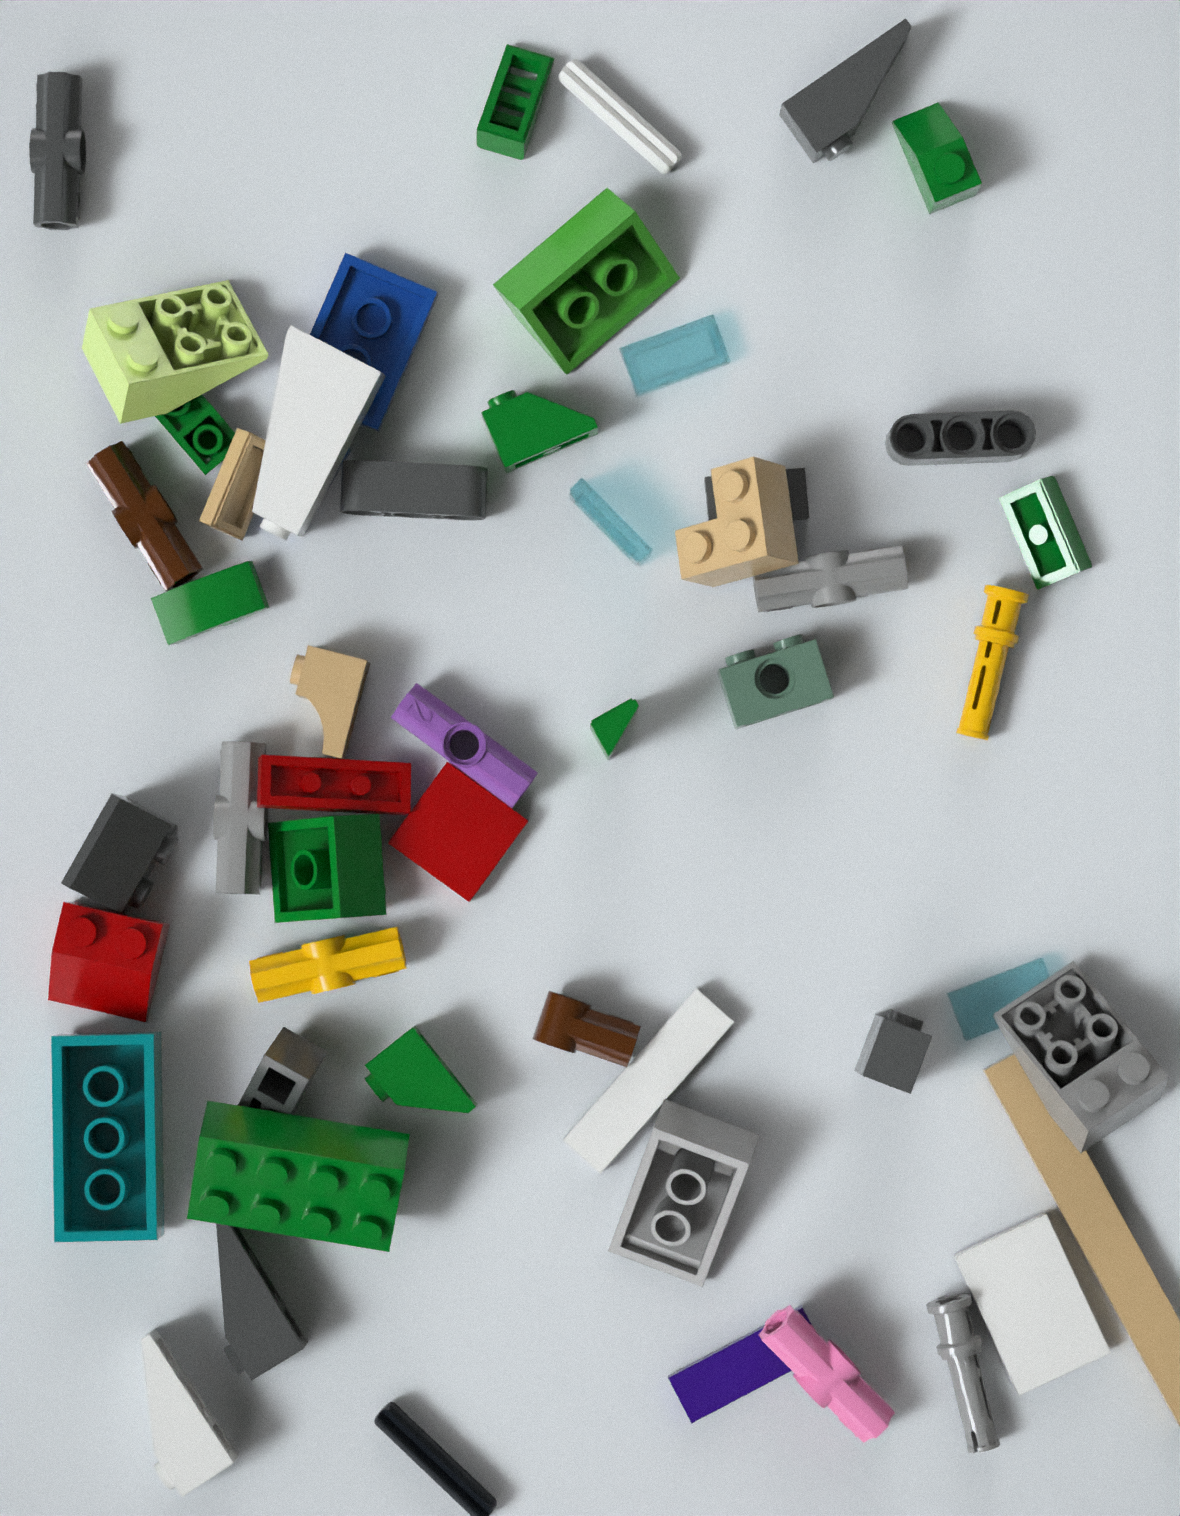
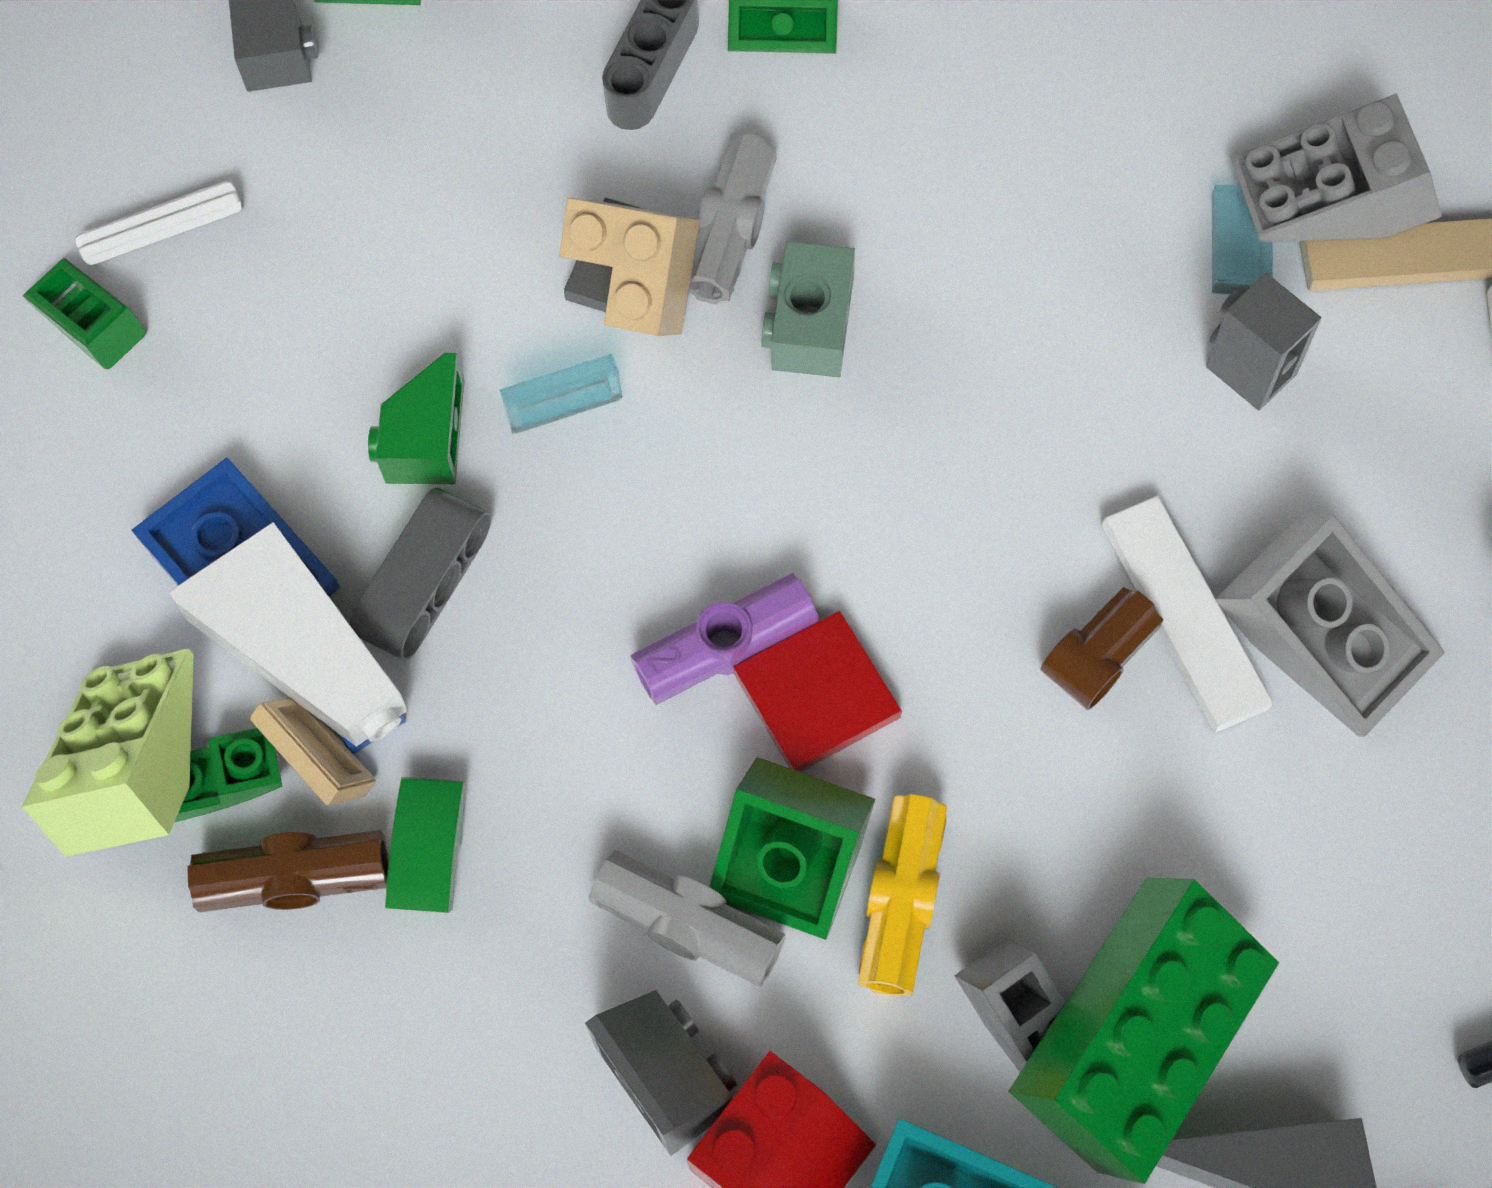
camera: 60 degrees left, 20 degrees down
(334, 785) = (698, 793): red plate -> none
(335, 689) = (593, 750): tan arch -> none
(417, 1076) = (1075, 849): green slope -> none
(587, 280) = (300, 313): bright green slope -> none
(612, 725) = (785, 469): green slope -> none
(674, 355) = (425, 272): clear light blue tile -> none
(995, 638) = (861, 104): yellow pin -> none

